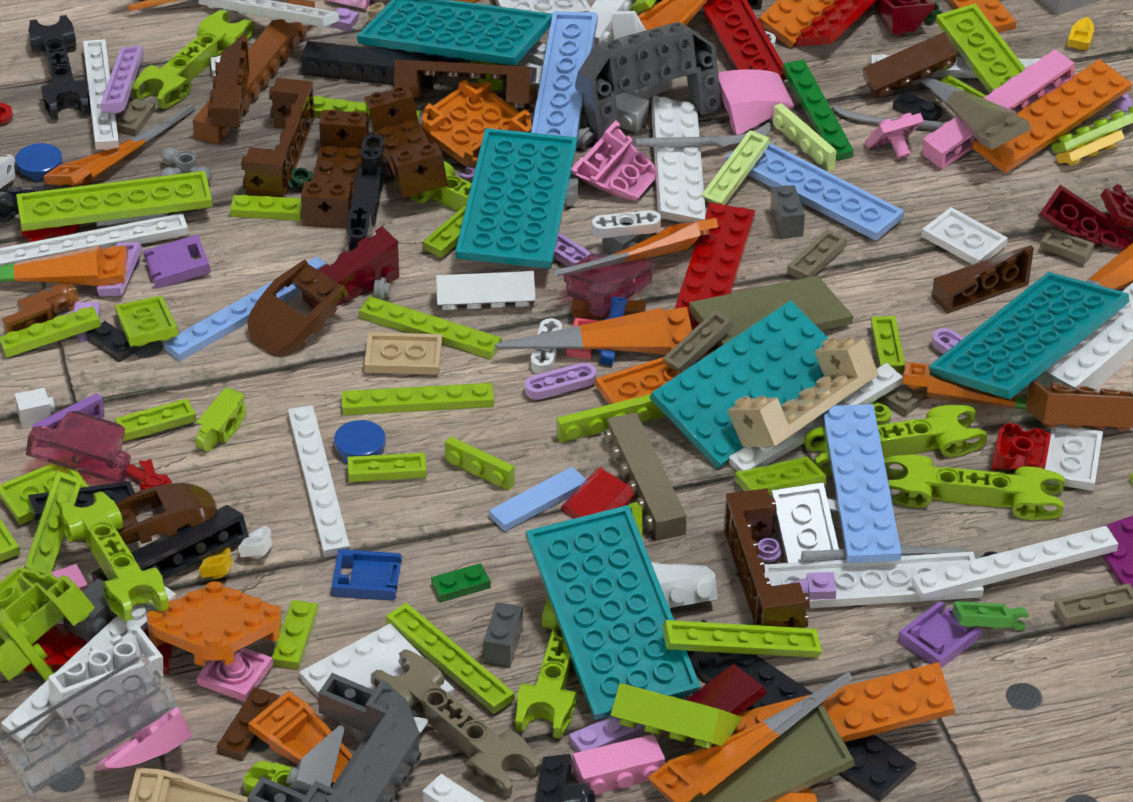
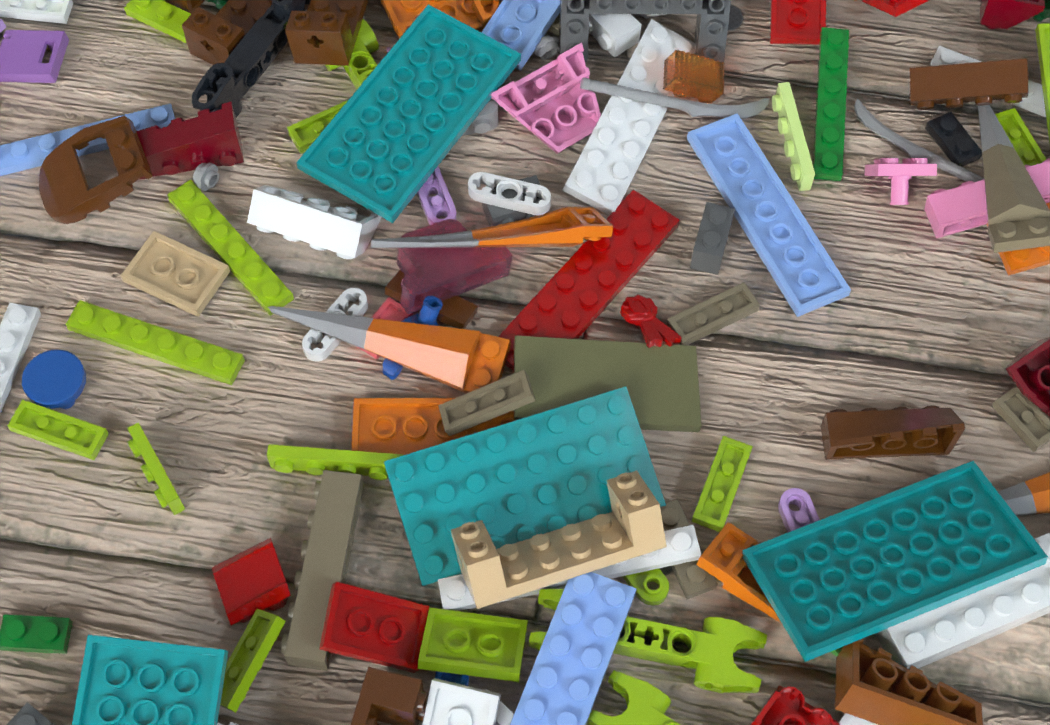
camera: 25 degrees right, 20 degrees up
(536, 499) = (191, 545): light blue tile -> none
(560, 381) = (307, 376): lavender plate -> none
(701, 486) = (374, 627): none -> red plate
(709, 119) = (693, 76): none -> clear orange brick
(736, 168) = (685, 156): yellowish green plate -> none
(751, 97) = (762, 57): bright pink wedge -> none
(767, 268) = (643, 313): none -> red piece
(964, 236) = (905, 355): white plate -> none

